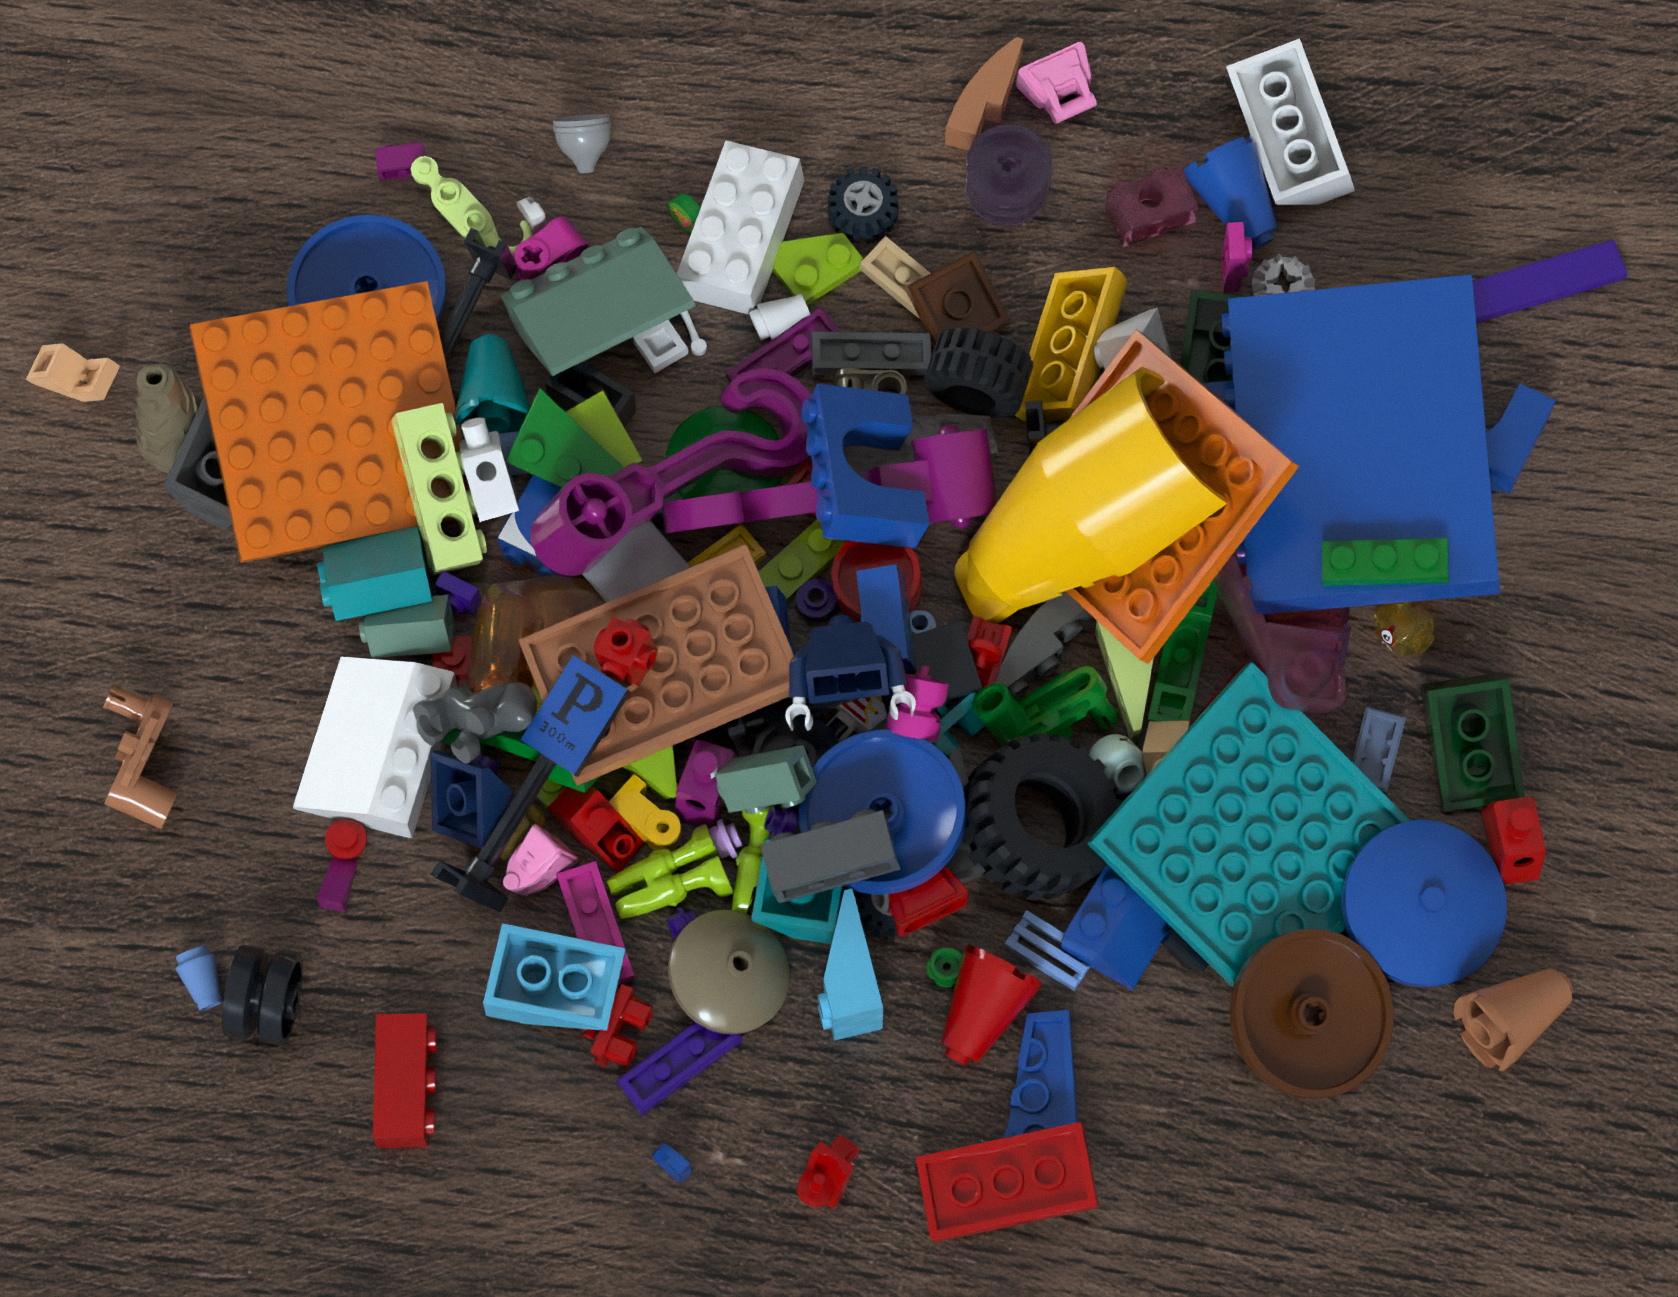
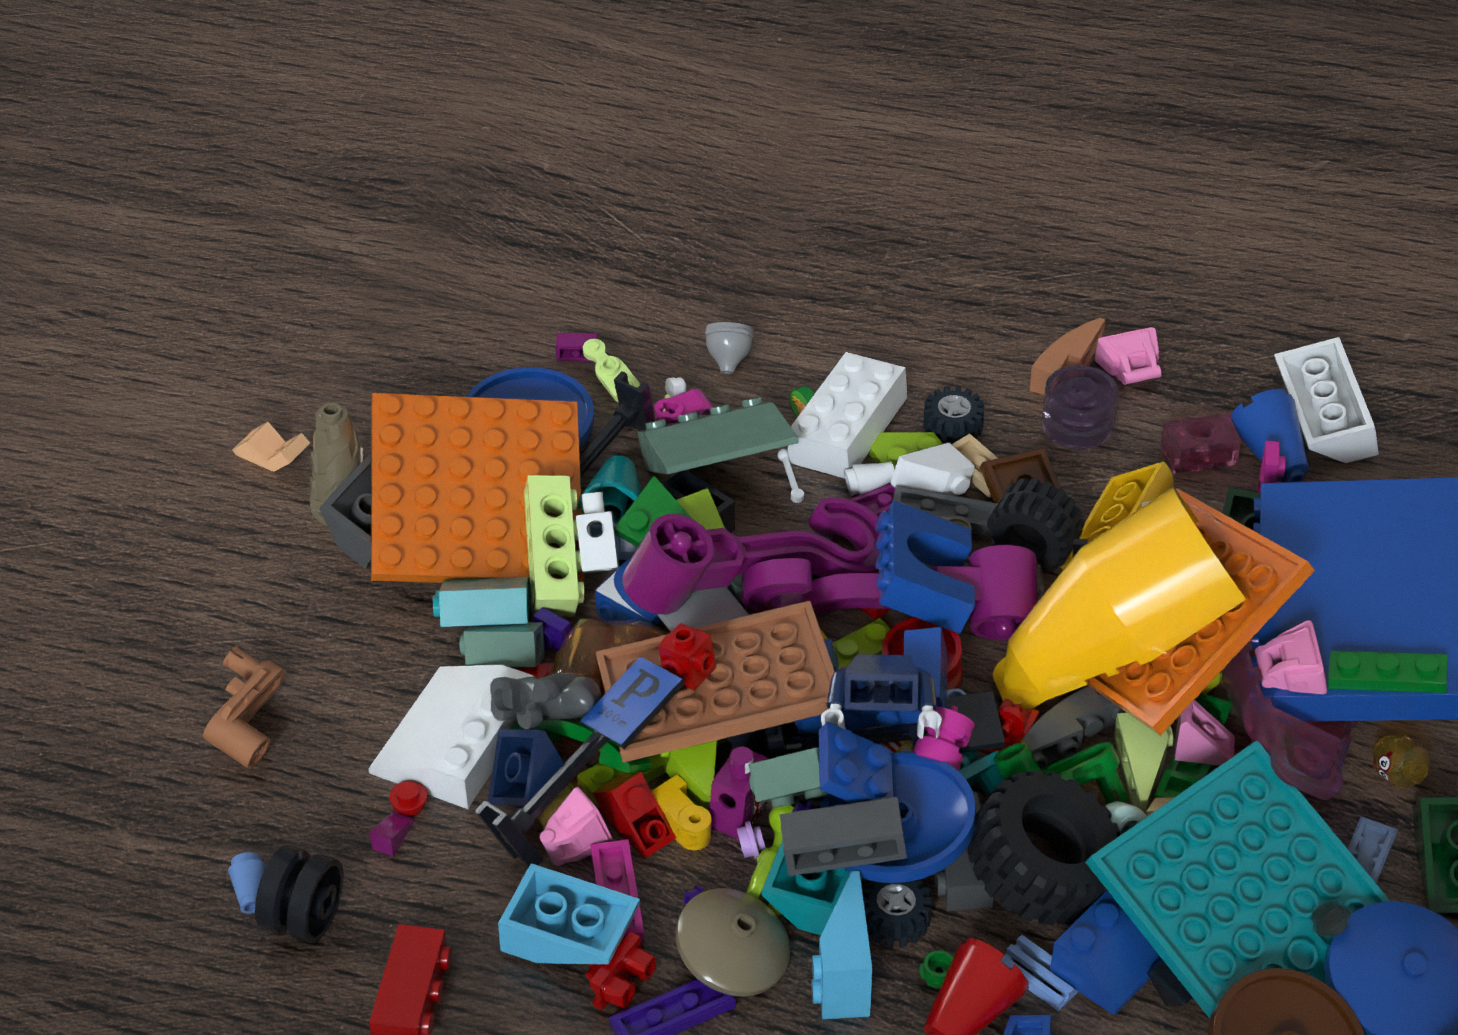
camera: 10 degrees right, 25 degrees down
(659, 884) = (682, 864): lime piece -> none
(660, 346) = (764, 486): white plate -> none
(831, 773) = (853, 766): none -> blue plate
(854, 301) = (934, 470): none -> white slope
(927, 902) = (928, 901): red piece -> none
(1197, 639) = (1202, 737): none -> bright pink slope
(1290, 558) = (1295, 660): none -> bright pink piece
(1343, 858) = (1330, 918): none -> clear smoke plate

